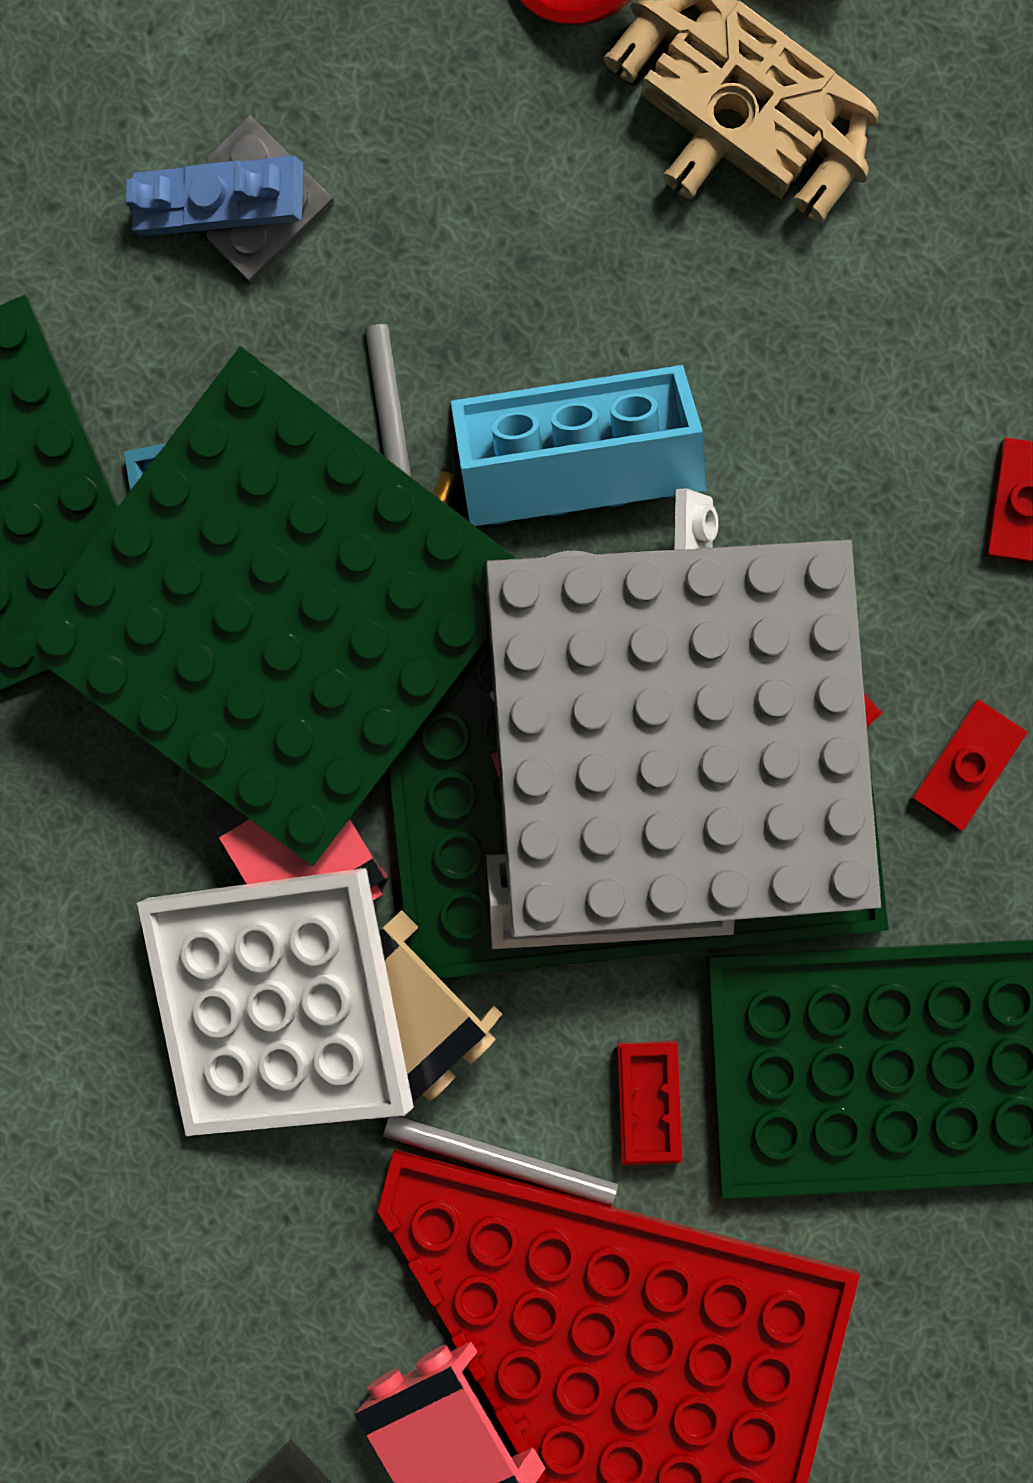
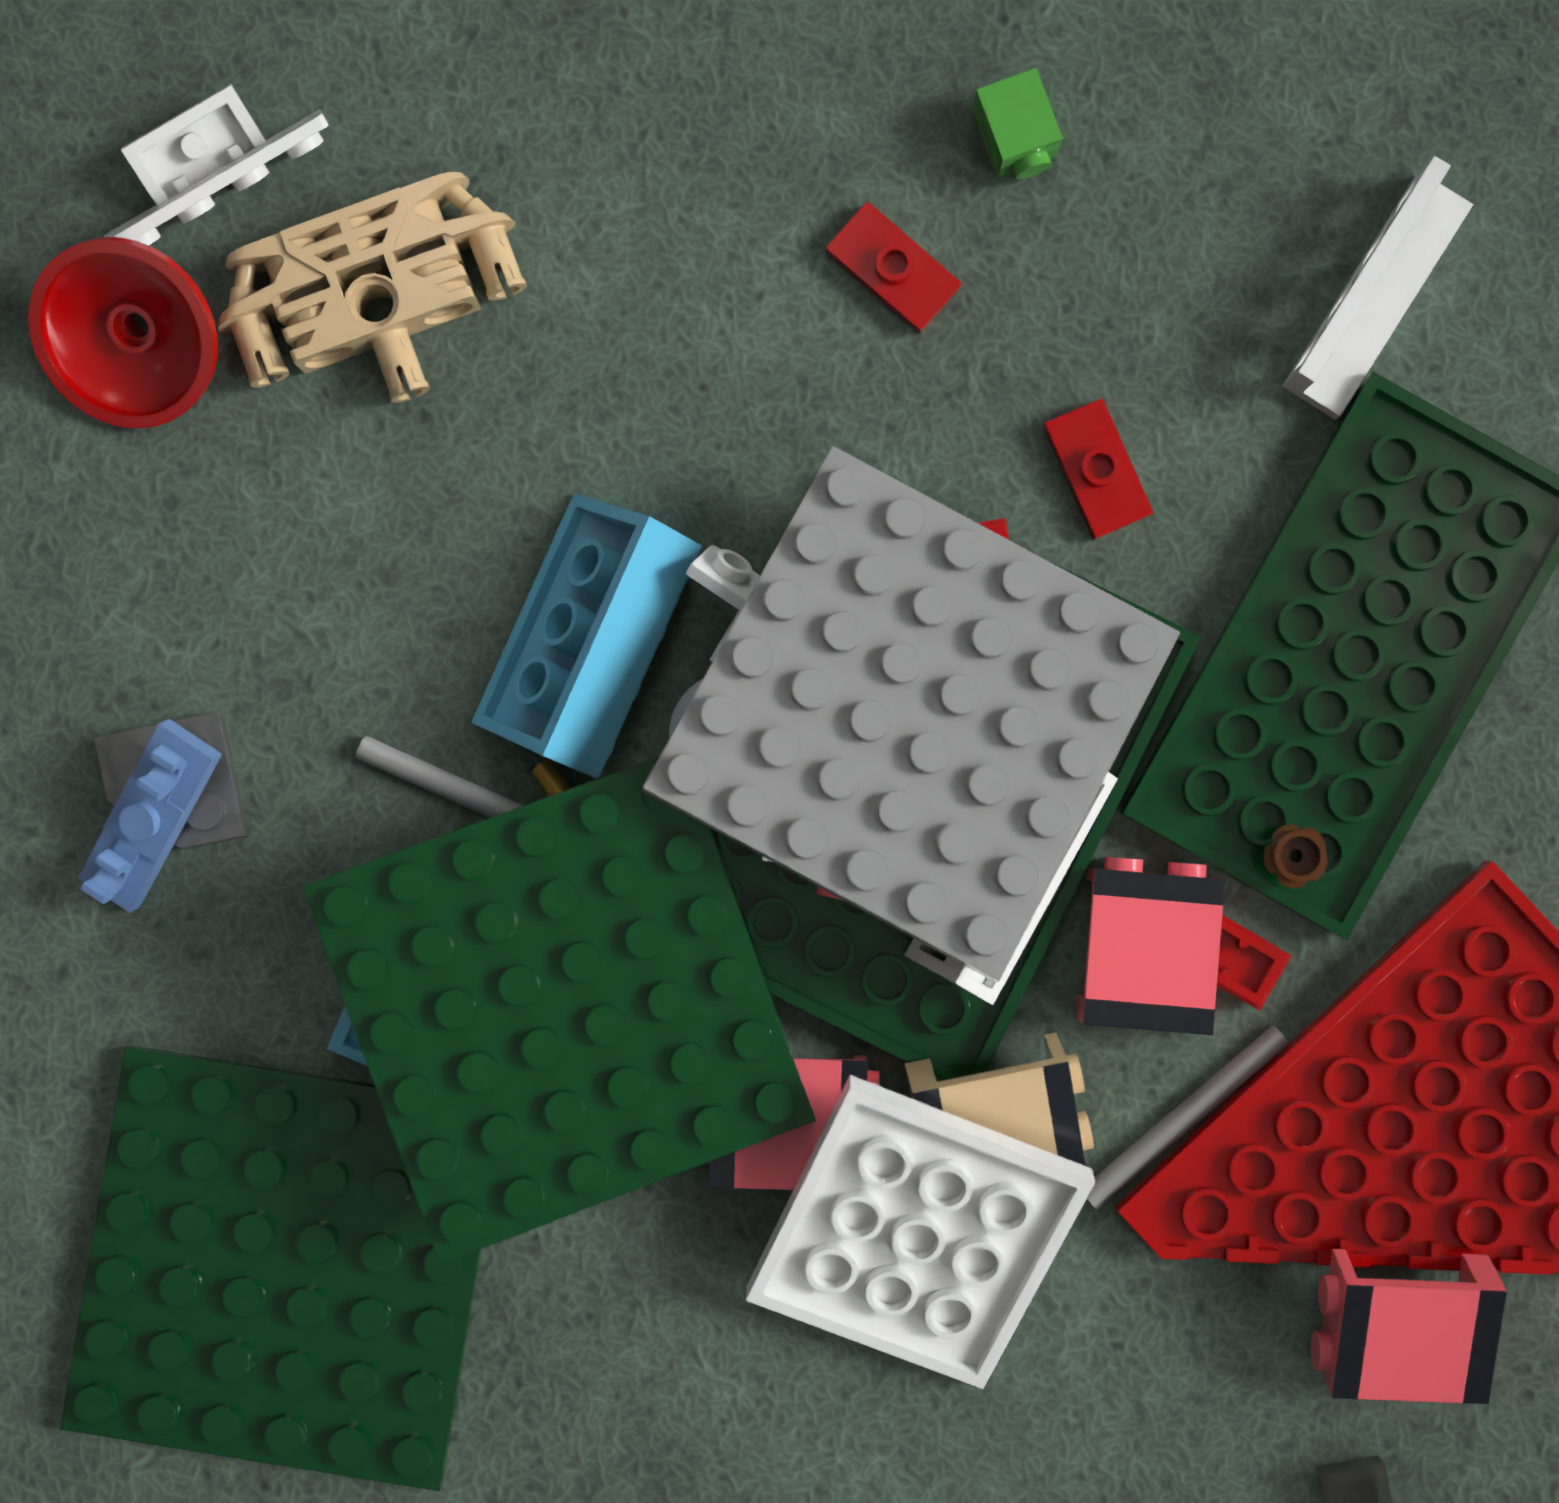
camera: 50 degrees left, 0 degrees up
(617, 1047) = (1152, 948): none -> coral panel
(768, 1130) = (1312, 850): none -> reddish brown plate

